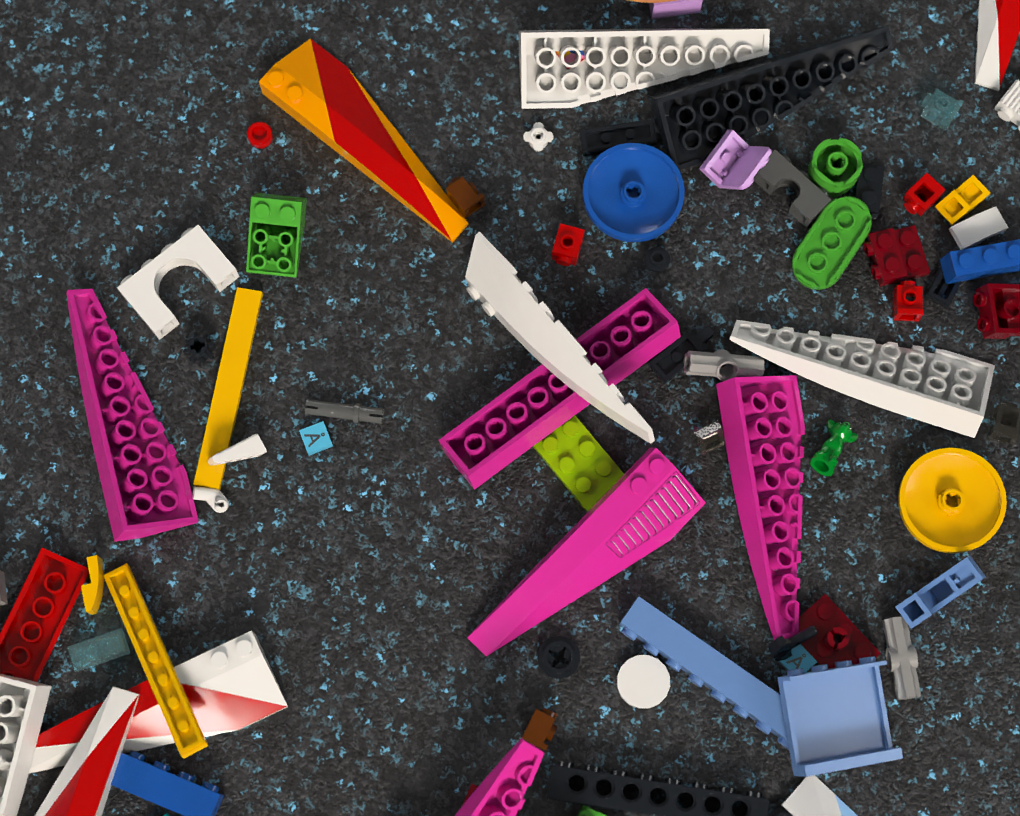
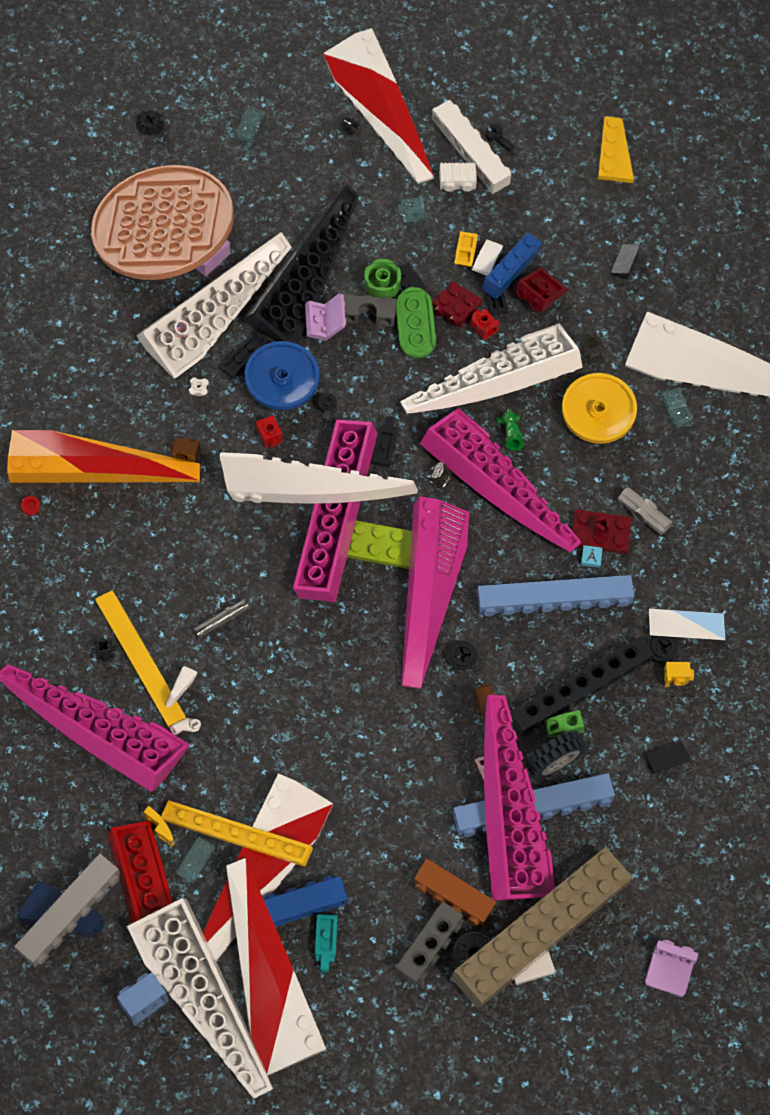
camera: 45 degrees left, 10 degrees down
(192, 250) = (53, 596): white arch -> none
(275, 234) = (92, 552): bright green slope -> none
(316, 438) = (217, 646): medium azure tile -> none
(643, 681) = (519, 632): white tile -> none
(710, 364) = (413, 430): light grey piece -> none
(781, 647) = (578, 552): black bar -> none
(836, 717) = (637, 564): medium blue panel -> none
(926, 188) = (443, 261): red brick -> none
(940, 591) = (635, 459): medium blue arch -> none

